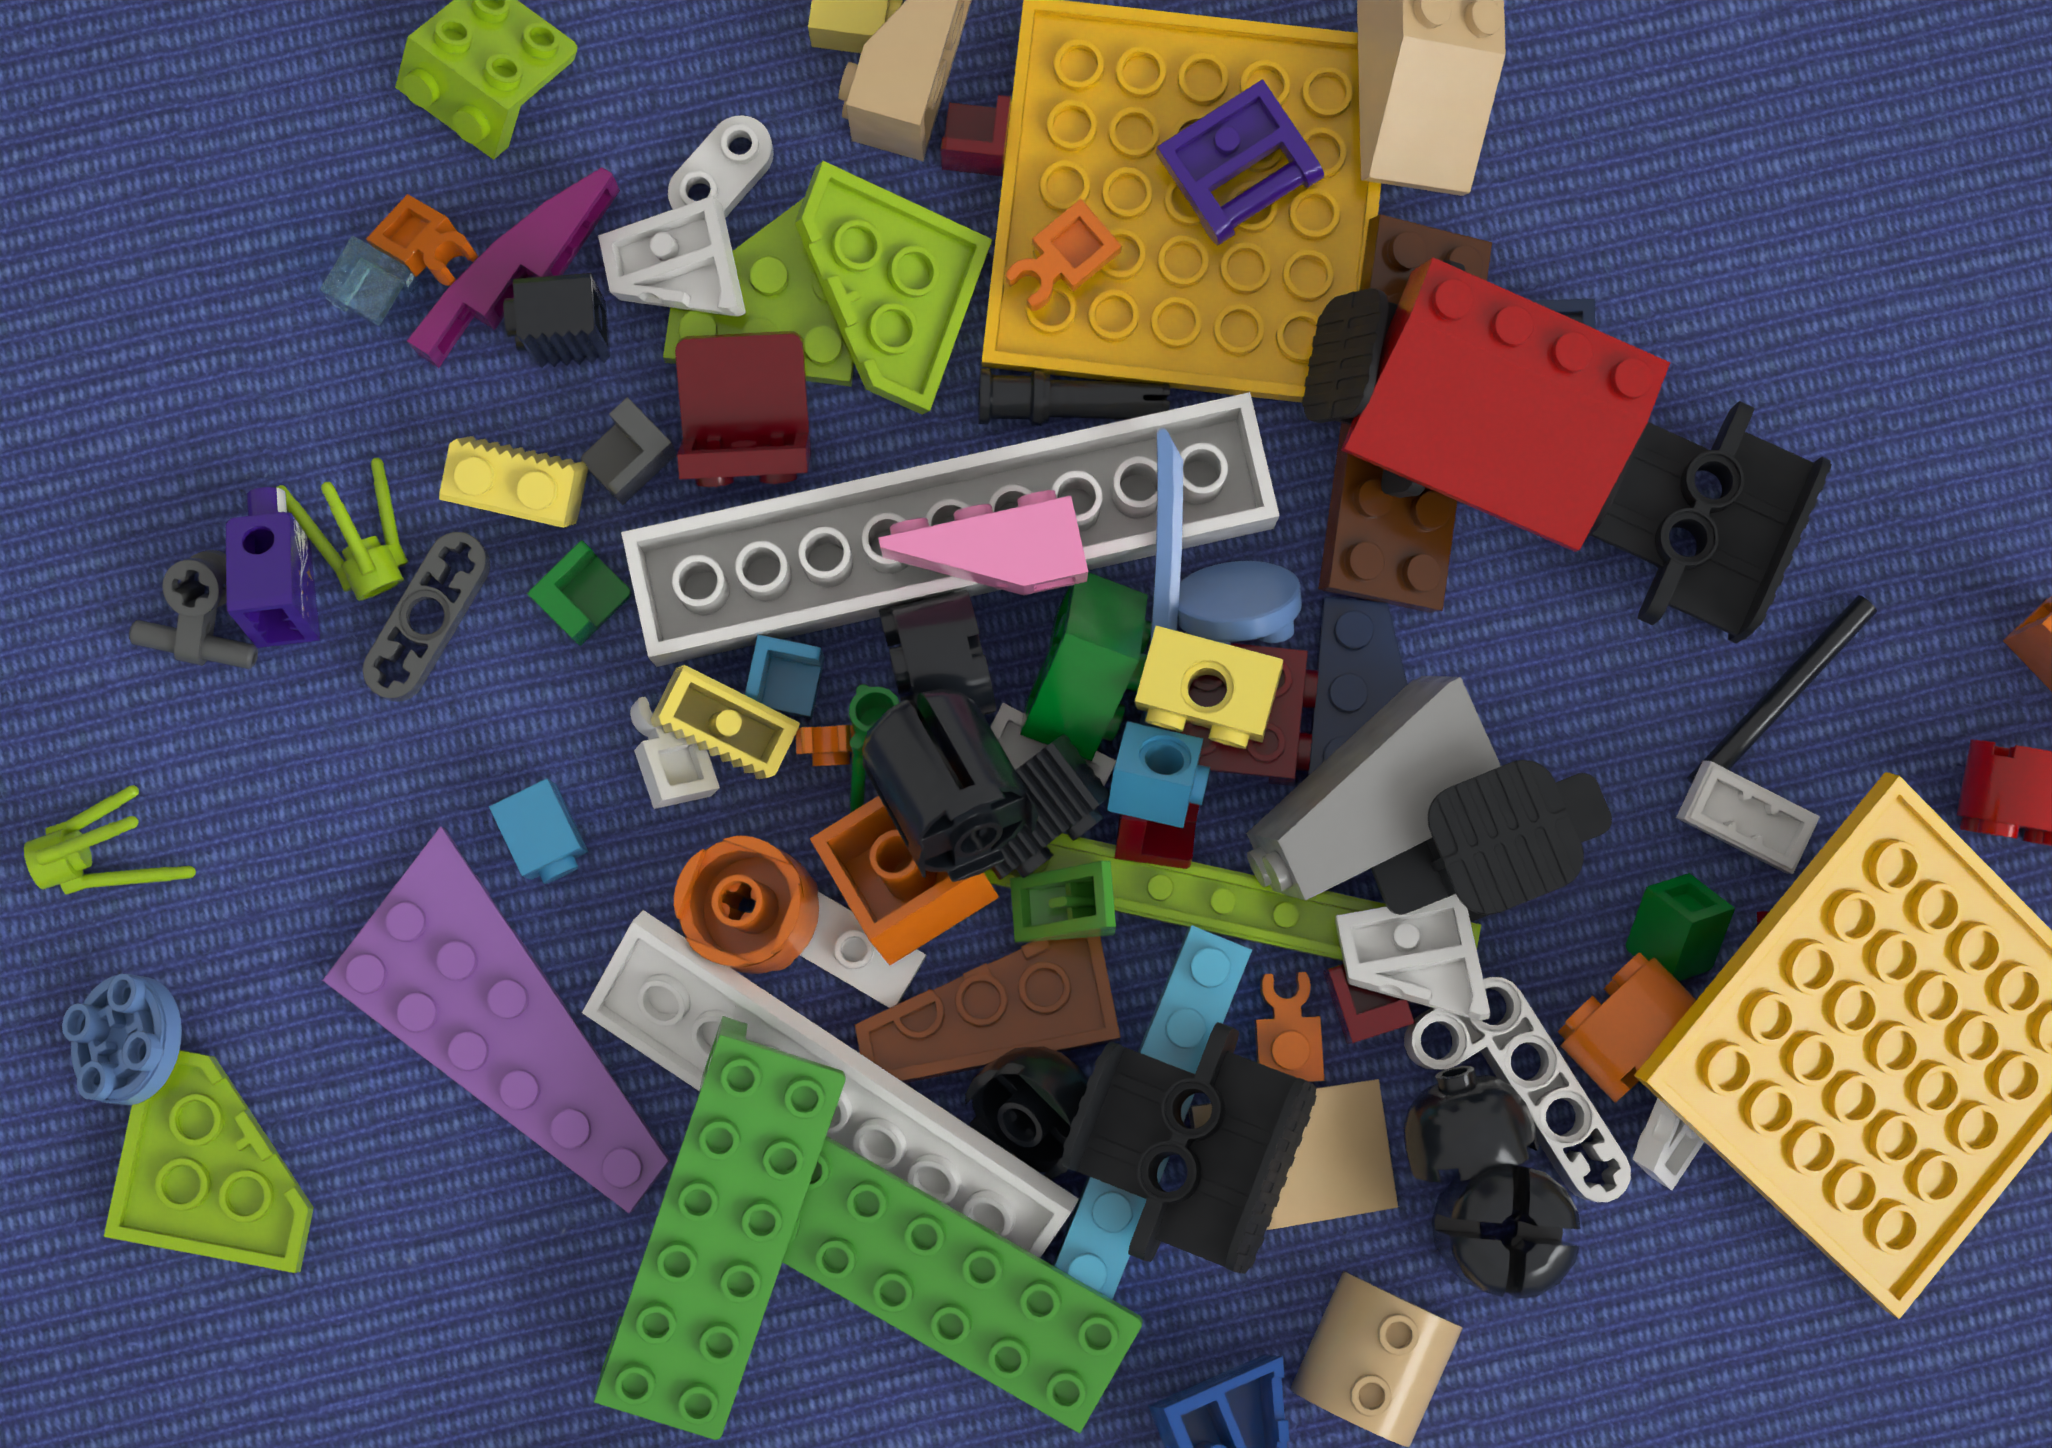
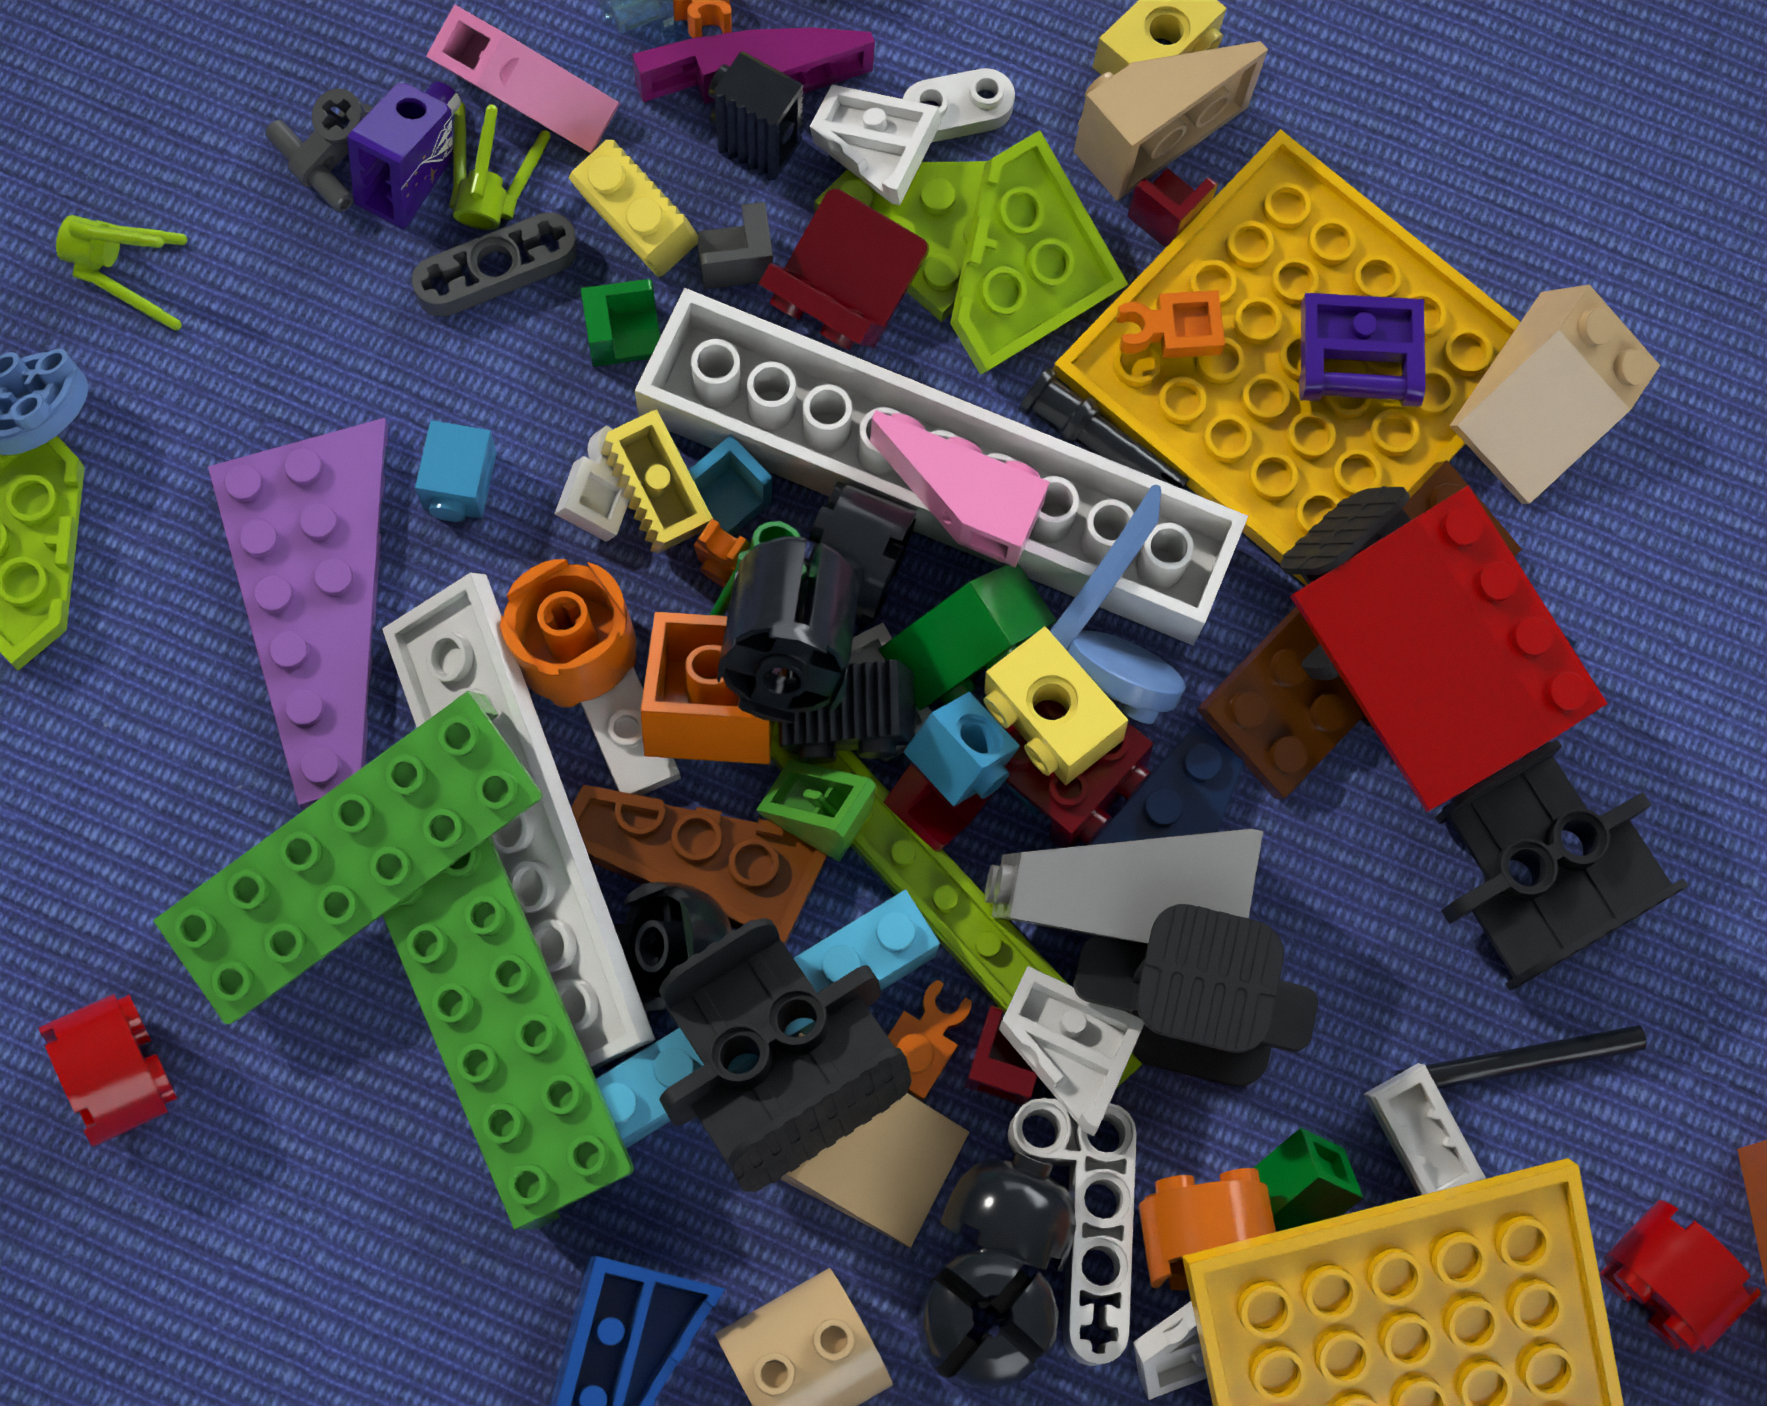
camera: 30 degrees right, 10 degrees down
(323, 431) = (522, 79): none -> bright pink slope

